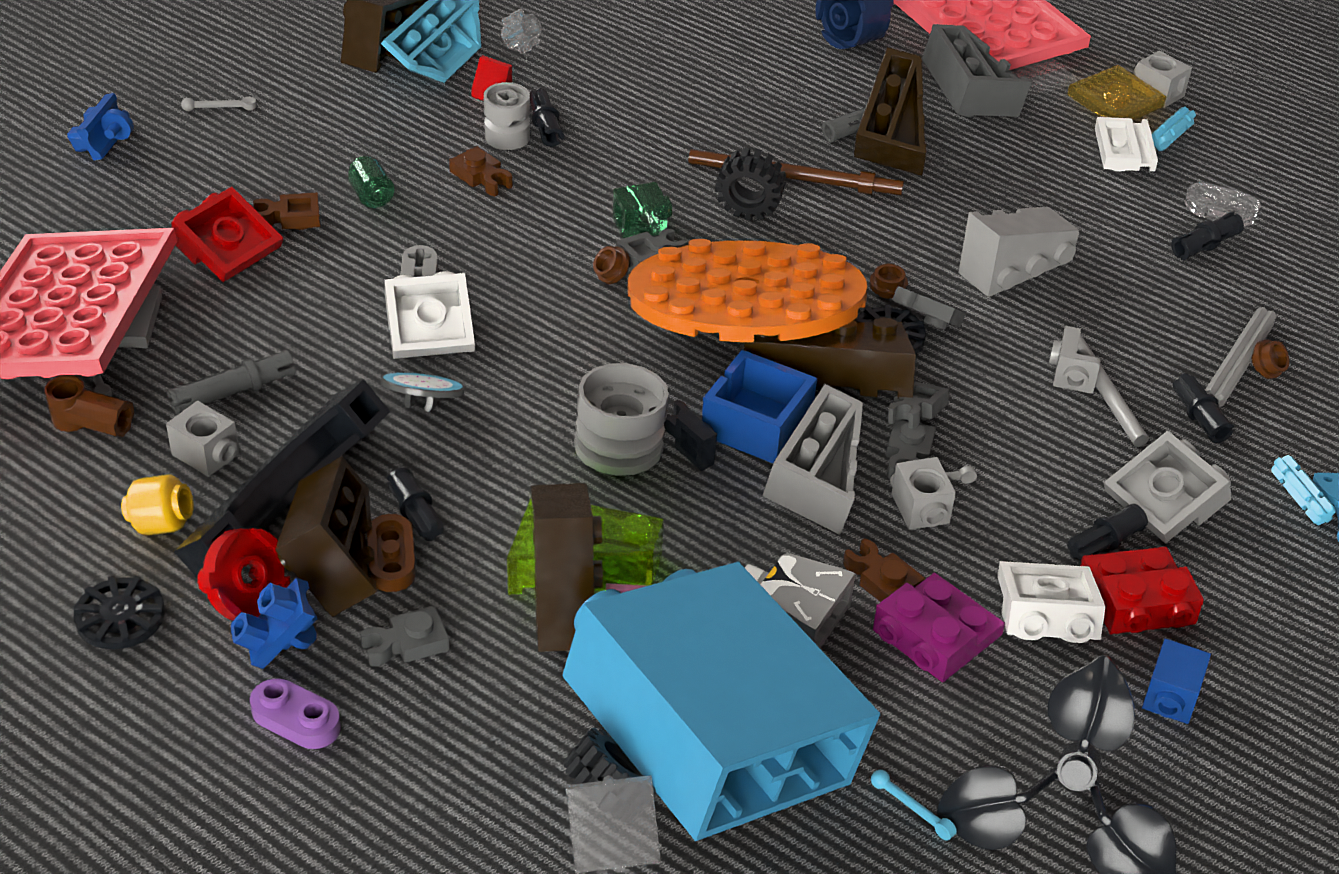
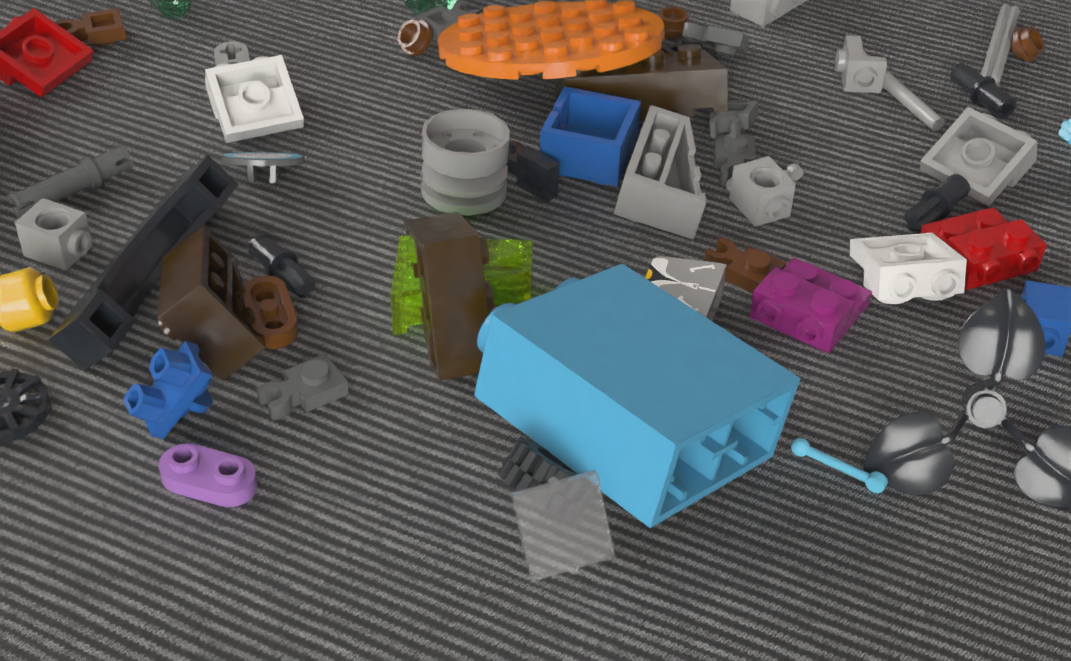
camera: 10 degrees left, 0 degrees up
(223, 571) = (106, 345): red plate -> none

